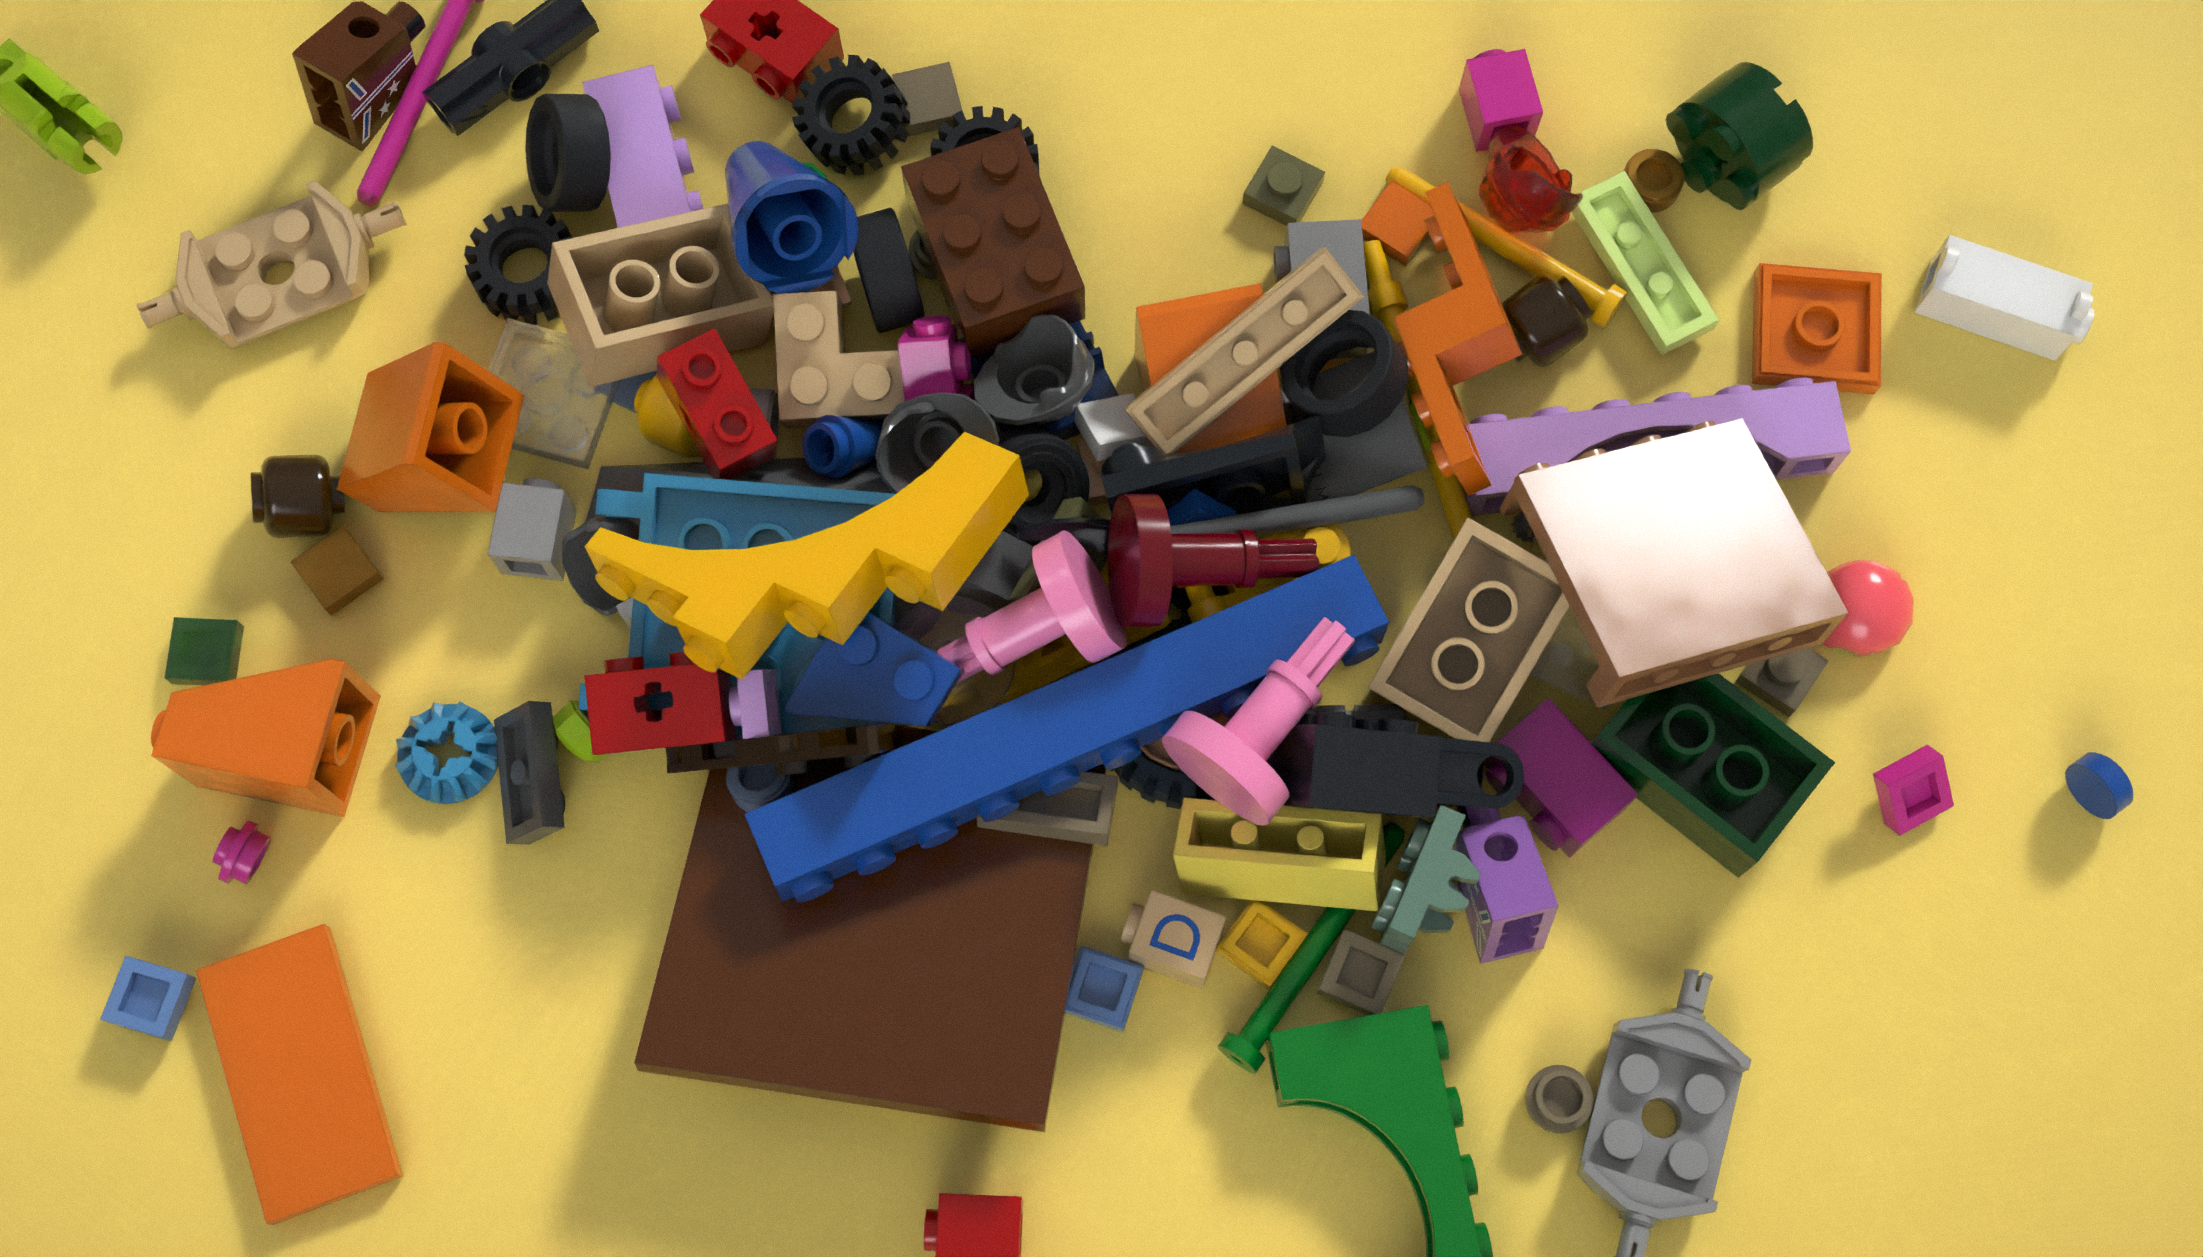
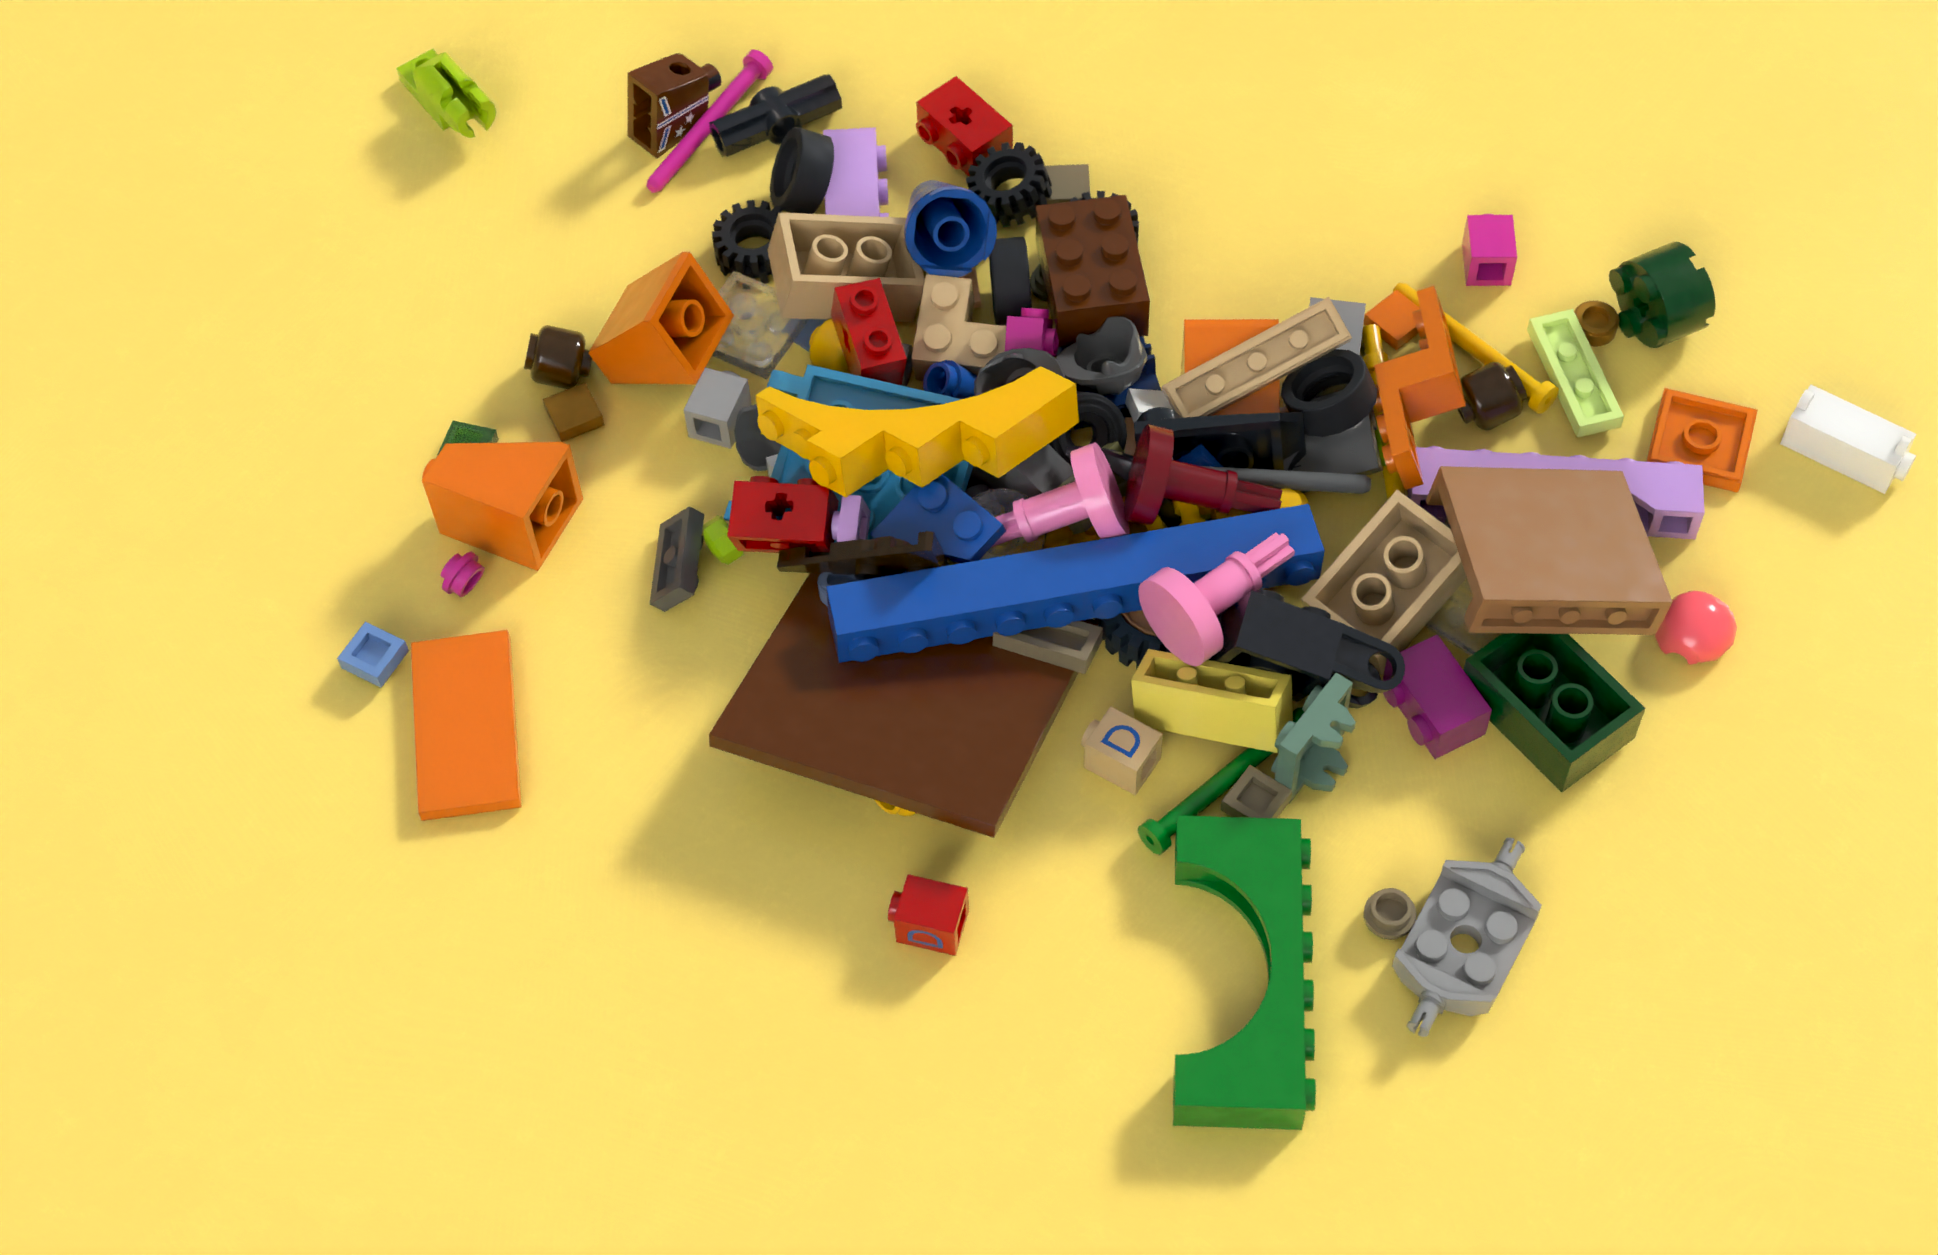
camera: 15 degrees right, 15 degrees down
(225, 273) = (543, 216): tan plate -> none
(460, 776) = (628, 555): dark azure gear -> none
(1103, 988) = (1060, 778): medium blue tile -> none
(1261, 942) = (1185, 768): yellow tile -> none
(1283, 187) = (1316, 280): olive plate -> none
(1513, 898) = (1376, 737): medium lavender torso -> none
(1525, 185) = (1494, 305): clear red piece -> none
(1783, 679) = (1627, 659): dark tan plate -> none
(1913, 789) = (1709, 753): dark pink plate -> none
(2099, 785) = (1857, 776): blue tile -> none

